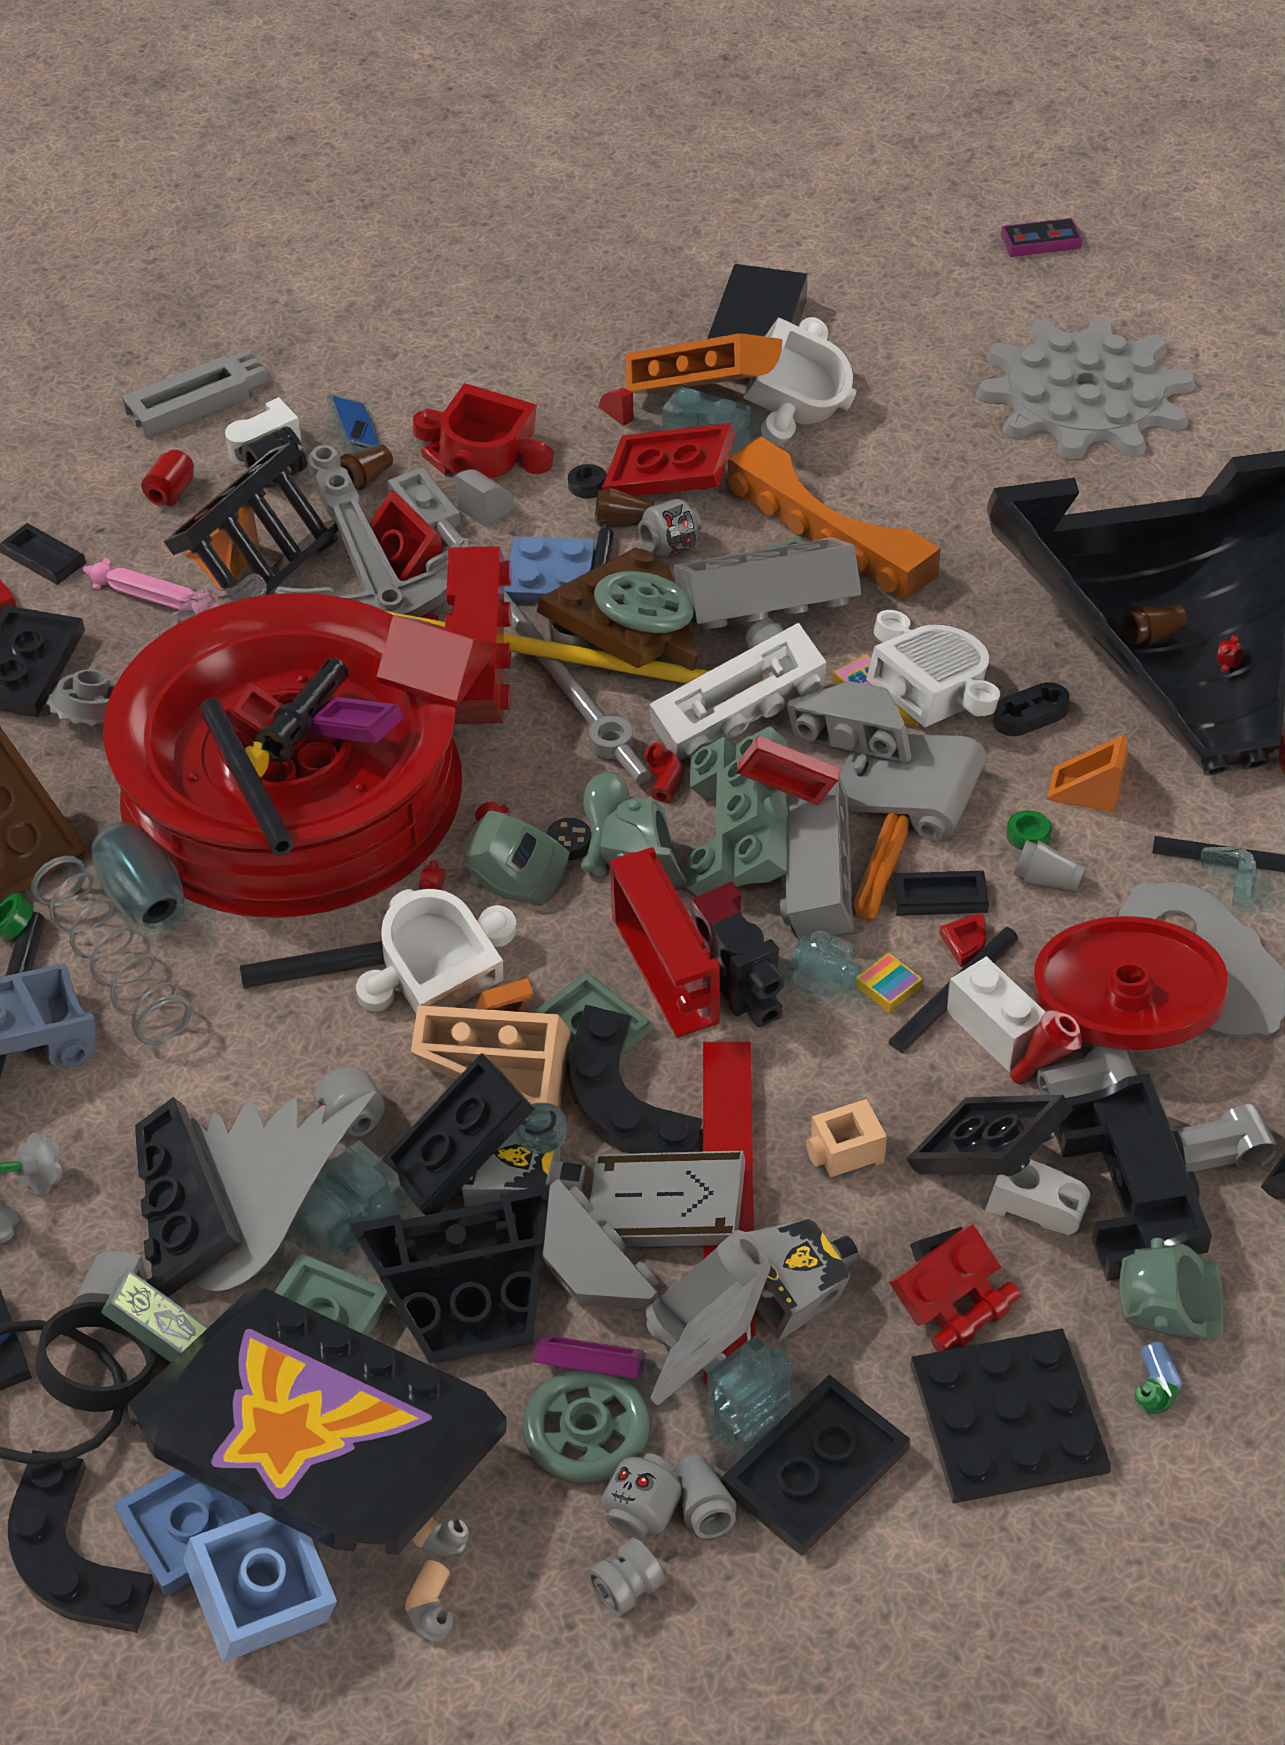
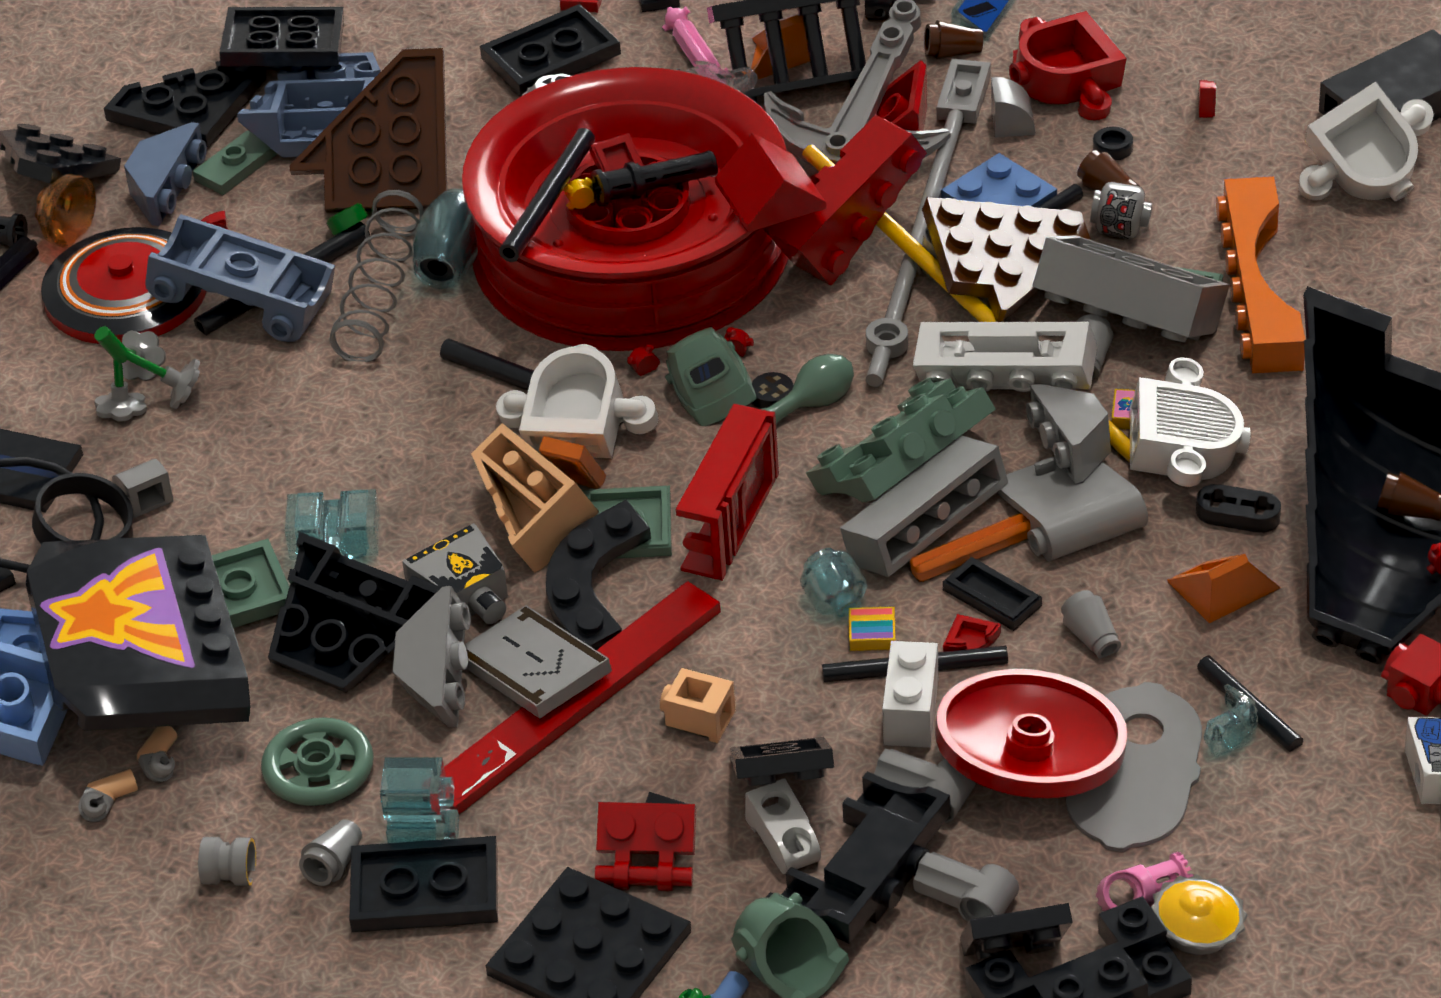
camera: 45 degrees right, 5 degrees down
(152, 1316) = (131, 506): tile -> none
(181, 1200) = (239, 460): black wing -> none
(266, 1177) = (286, 472): light grey piece -> none
(343, 1087) = (410, 468): light grey head -> none
(356, 720) = (673, 202): magenta tile -> none
(457, 1135) = (436, 523): black tile -> none
(543, 1129) = (491, 554): clear light blue tile -> none
(590, 1356) = (365, 721): magenta tile -> none
(638, 826) = (808, 418): sand green helmet -> none
(641, 1496) = (290, 820): light grey head -> none
(644, 602) = (1001, 244): sand green plate -> none
(666, 769) = (897, 391): red arm -> none
(671, 460) = (1182, 158): red plate -> none
(695, 409) = (1251, 143): clear light blue brick -> none
(701, 362) = (1284, 90): orange brick -> none
(707, 1310) = (444, 735): light grey door -> none
(746, 962) = (771, 519): black hips -> none
(788, 770) = (936, 418): red tile -> none
(803, 1274) = (550, 758): light grey torso -> none
(1028, 826) = (1119, 592): green tile -> none
(1053, 1039) = (910, 726): red cone -> none

